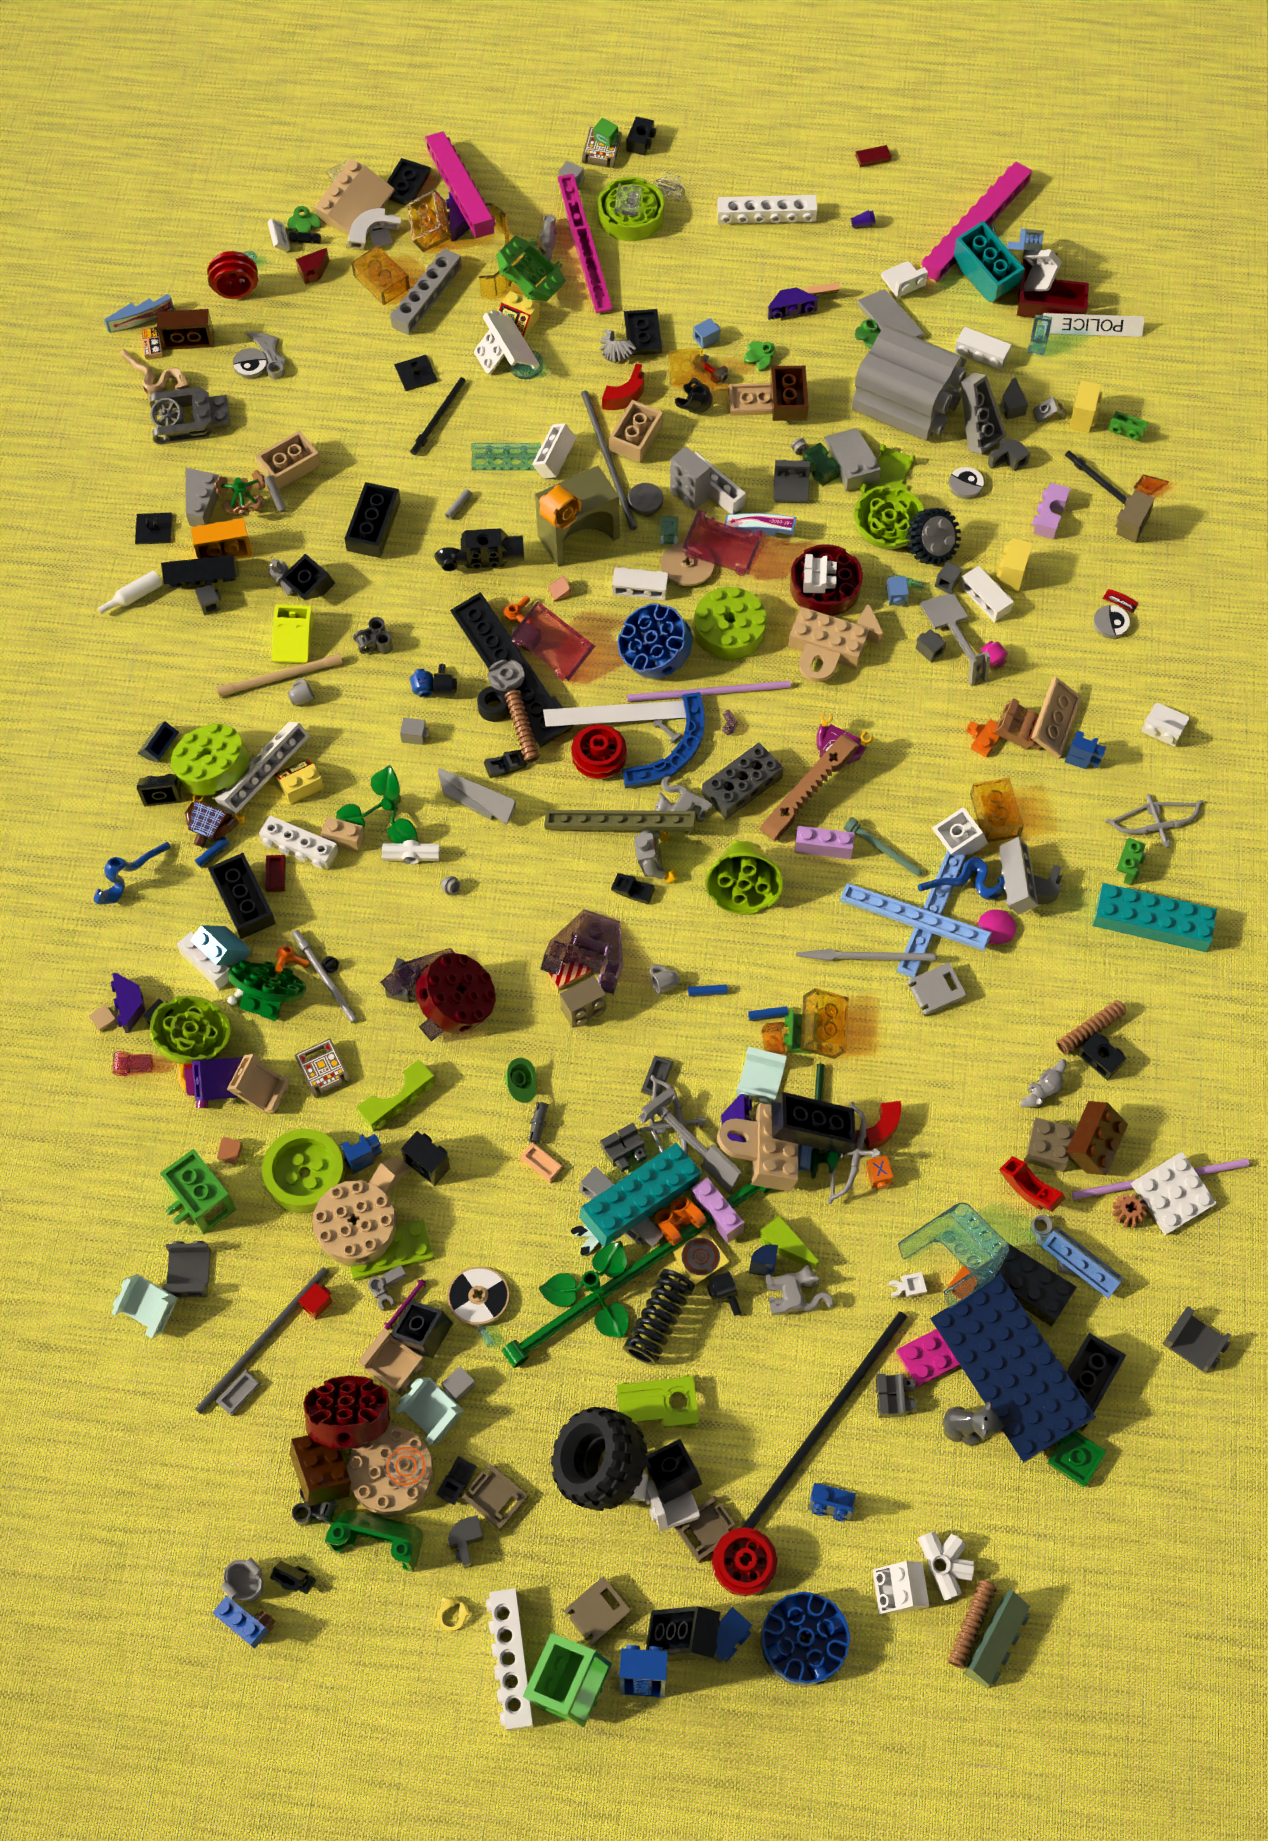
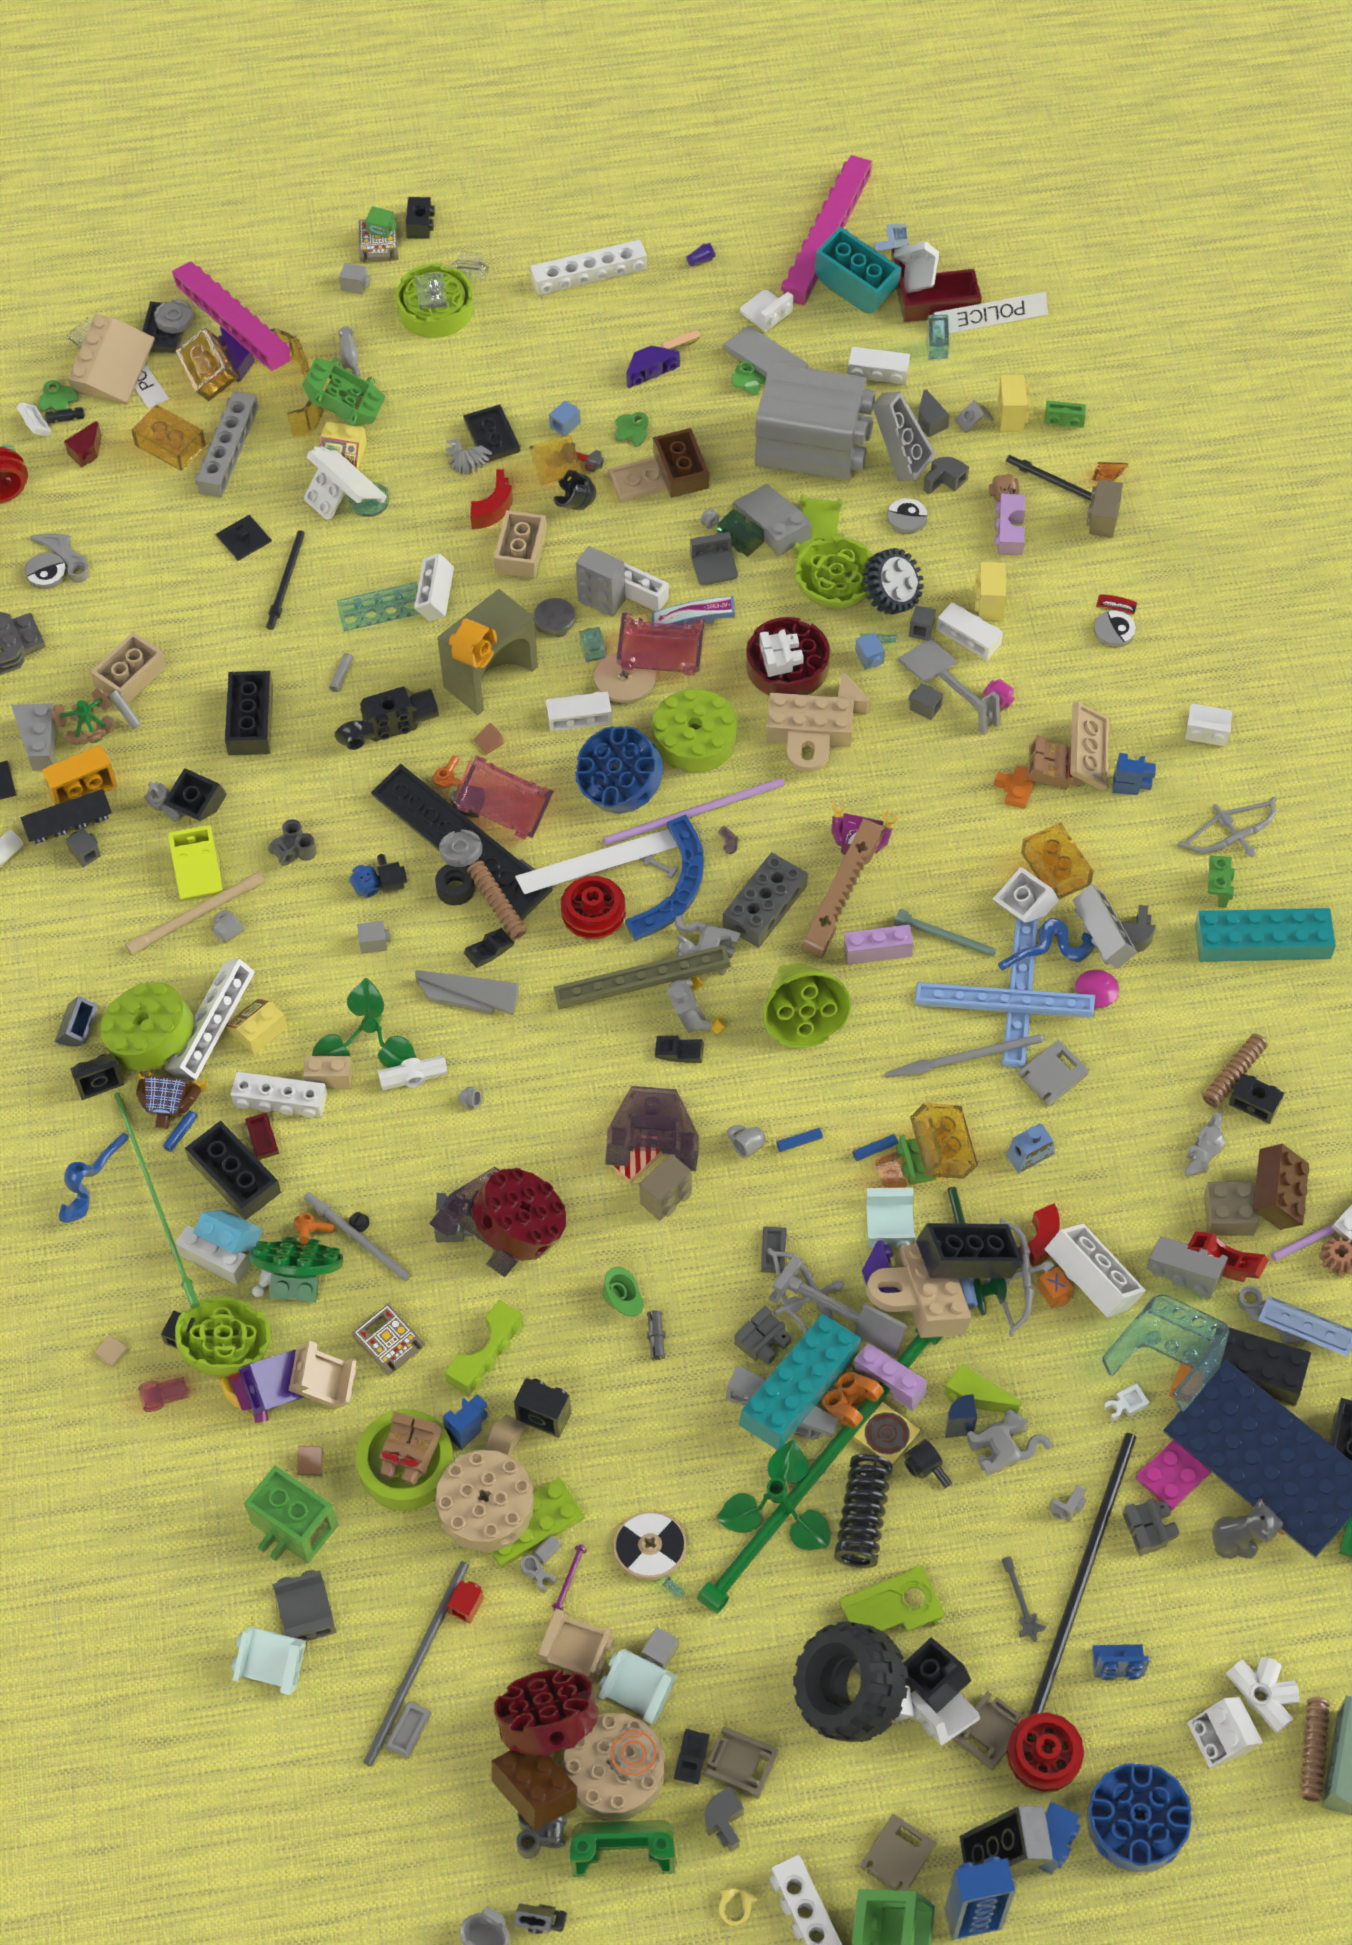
camera: 15 degrees left, 5 degrees down
(128, 1001) = (136, 1323): dark purple slope -> none
(174, 979) = (186, 1282): none -> bright green piece
(307, 1162) = (409, 1447): none -> medium nougat hips
(366, 222) = (135, 380): white arch -> none
(416, 174) = (174, 316): none -> light grey tile
(422, 1328) = (599, 1598): black slope -> none
(541, 1162) = (673, 1378): light nougat tile -> none
(584, 244) = (393, 351): dark pink slope -> none
(590, 1244) = (750, 1441): piece -> none
(609, 461) = (490, 573): dark grey piece -> none
(767, 1448) = (1029, 1624): none -> dark grey piece
(836, 1359) = (1067, 1511): none -> light grey bracket
(873, 156) = (688, 183): dark red tile -> none
(896, 1048) = (1034, 1147): none -> medium blue torso
(916, 1167) = (1095, 1270): none -> white brick
(995, 1185) = (1187, 1267): none -> light grey wedge
(1055, 475) = (1003, 485): none -> medium nougat head

